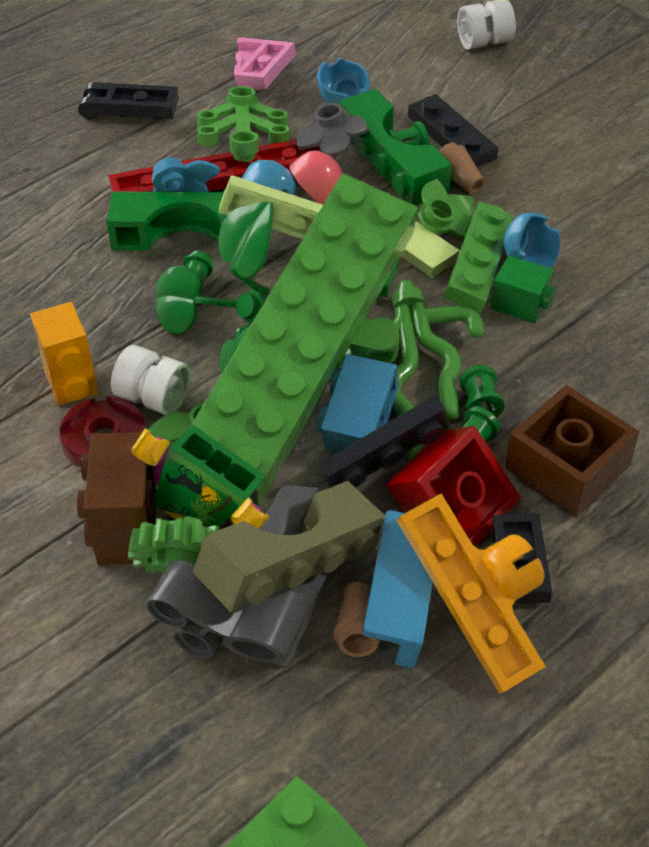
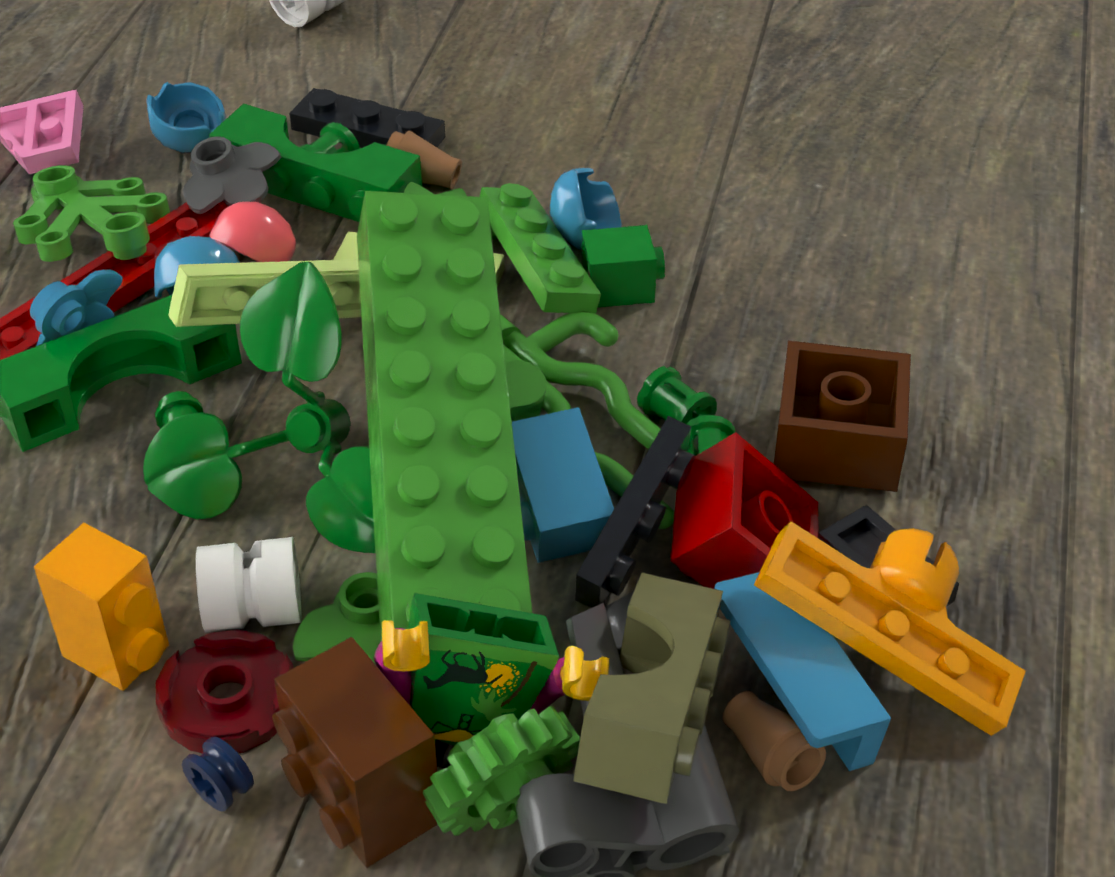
camera: 35 degrees left, 5 degrees down
(58, 473) = (218, 773): none -> dark blue bush

